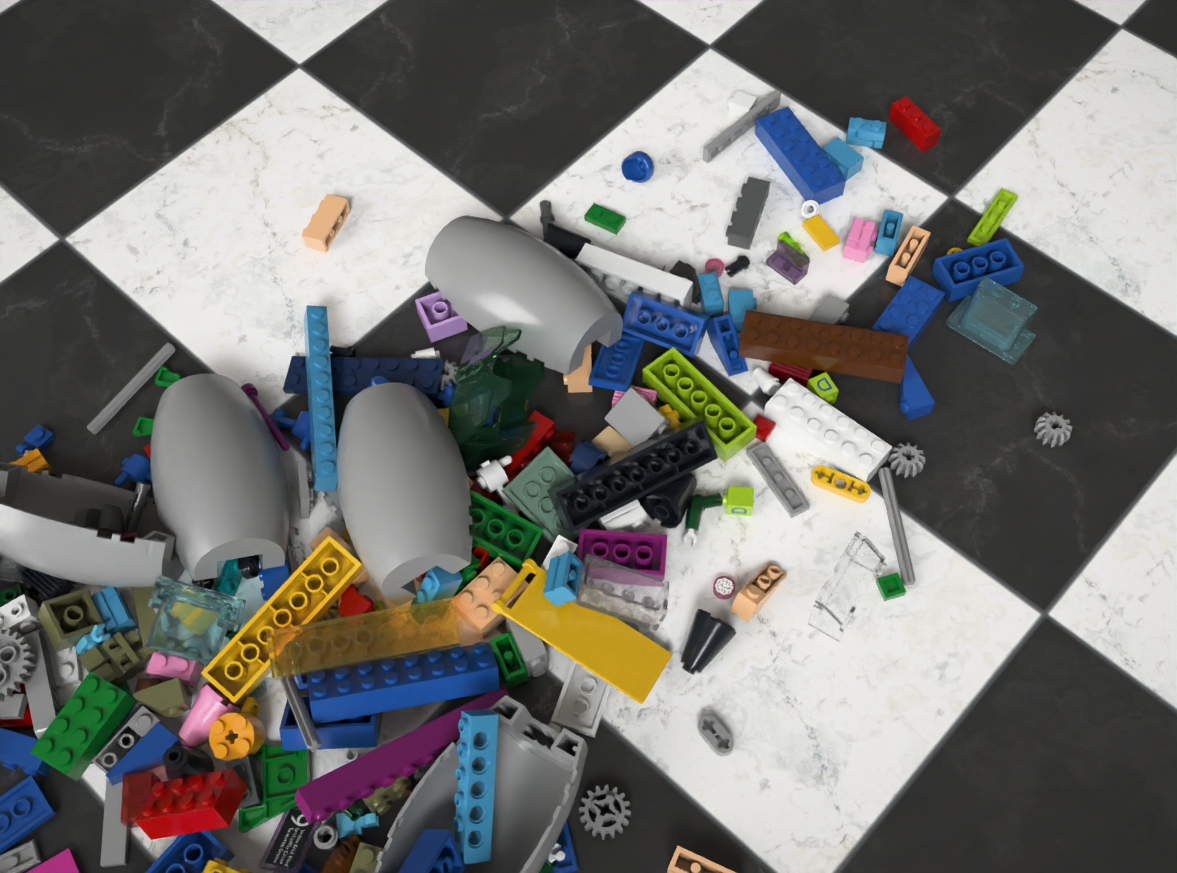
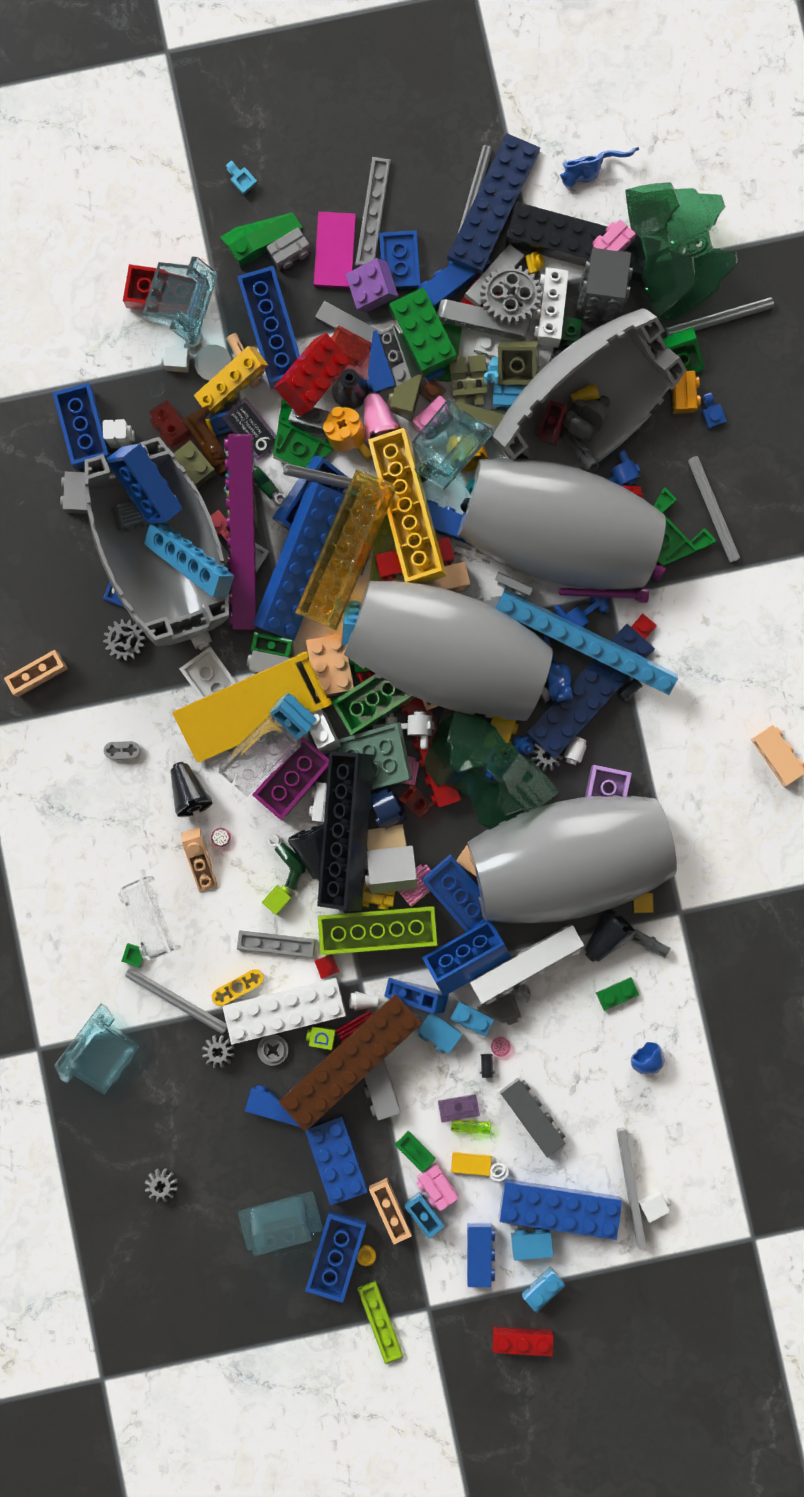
camera: 125 degrees right, 25 degrees up
(55, 820) = (371, 285): none -> medium lavender brick
(276, 377) = (644, 626): none -> red plate
(847, 272) = (415, 1151): none -> green plate
(874, 418) = (263, 1049): none -> light grey gear
(881, 185) = (480, 1254): none -> blue brick
(1001, 556) = (97, 1052): none -> clear light blue windscreen

